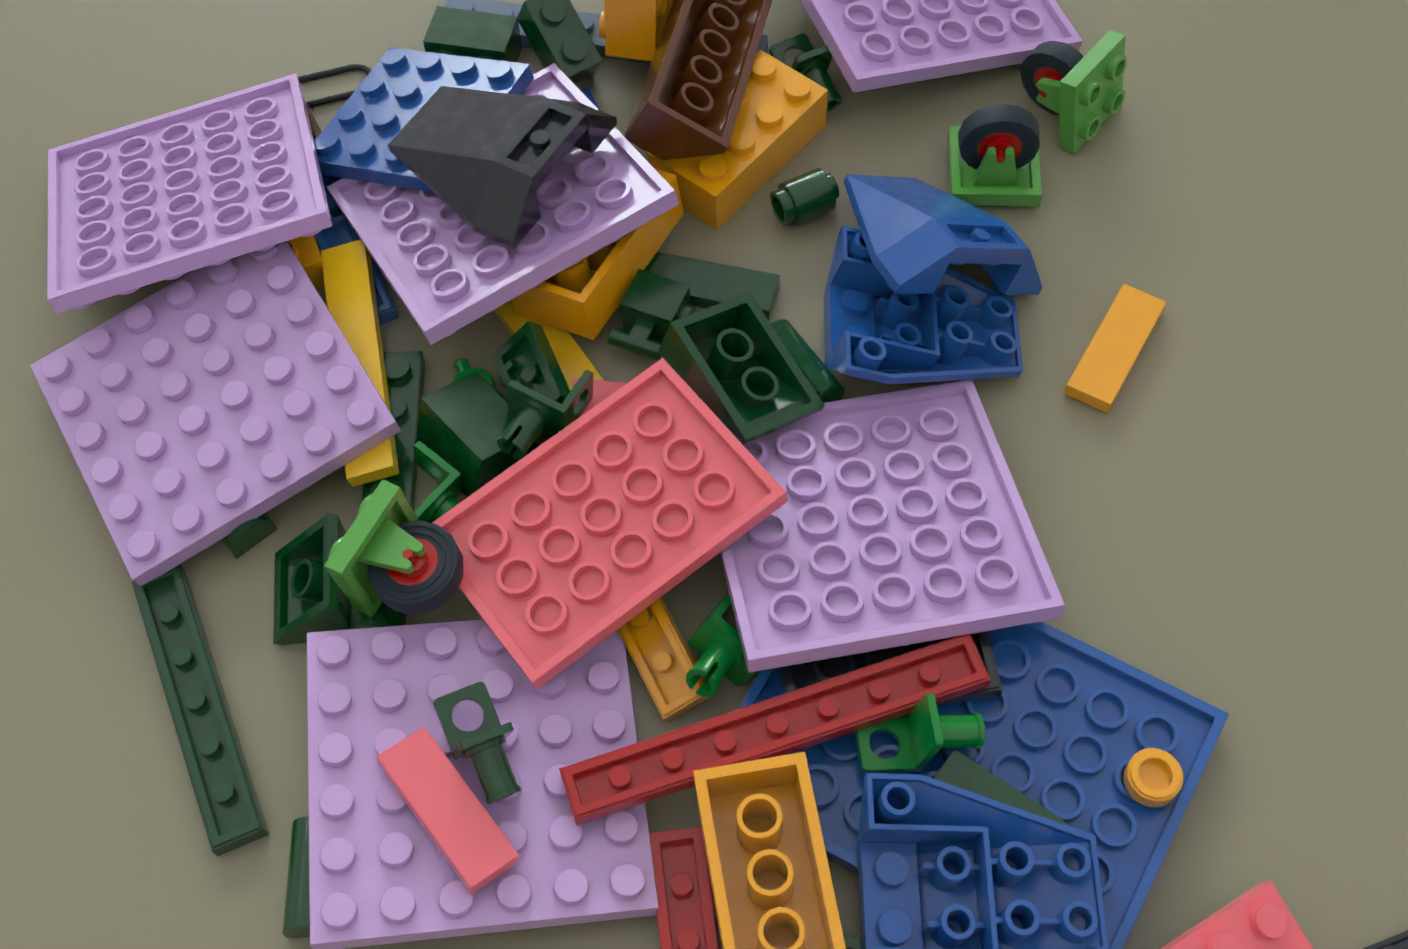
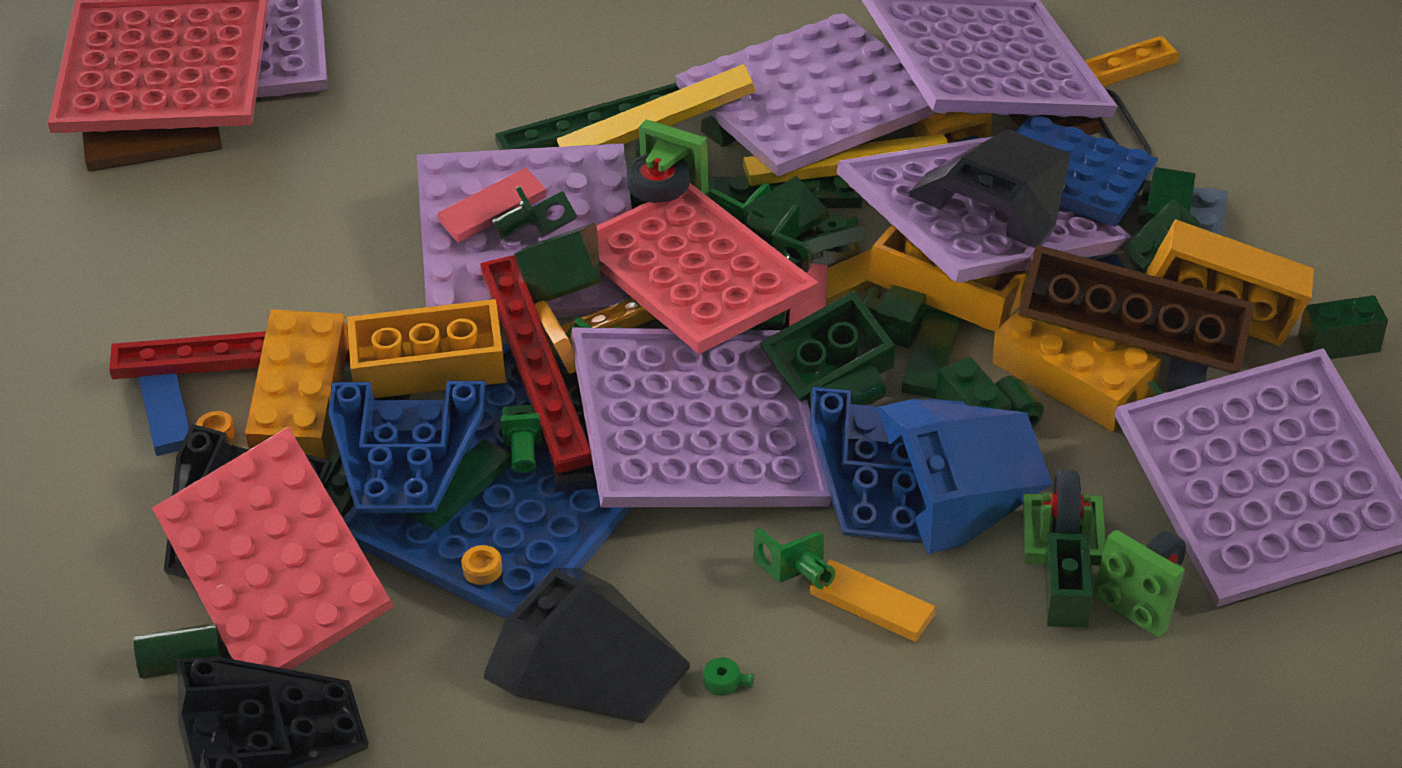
camera: 90 degrees right, 15 degrees down
(183, 65) = (1133, 60): none -> light orange tile
(235, 600) = (666, 109): none -> yellow tile
(582, 694) = (561, 264): none -> dark green slope
(726, 699) = (556, 335): none -> light orange tile
(804, 234) = (970, 384): none -> dark green brick
(1082, 411) = (794, 558): none -> green bracket
(1087, 154) = (1068, 580): none -> dark green brick
(1256, 496) = (723, 676): none -> green piece
(1260, 635) = (584, 650): none -> black wedge

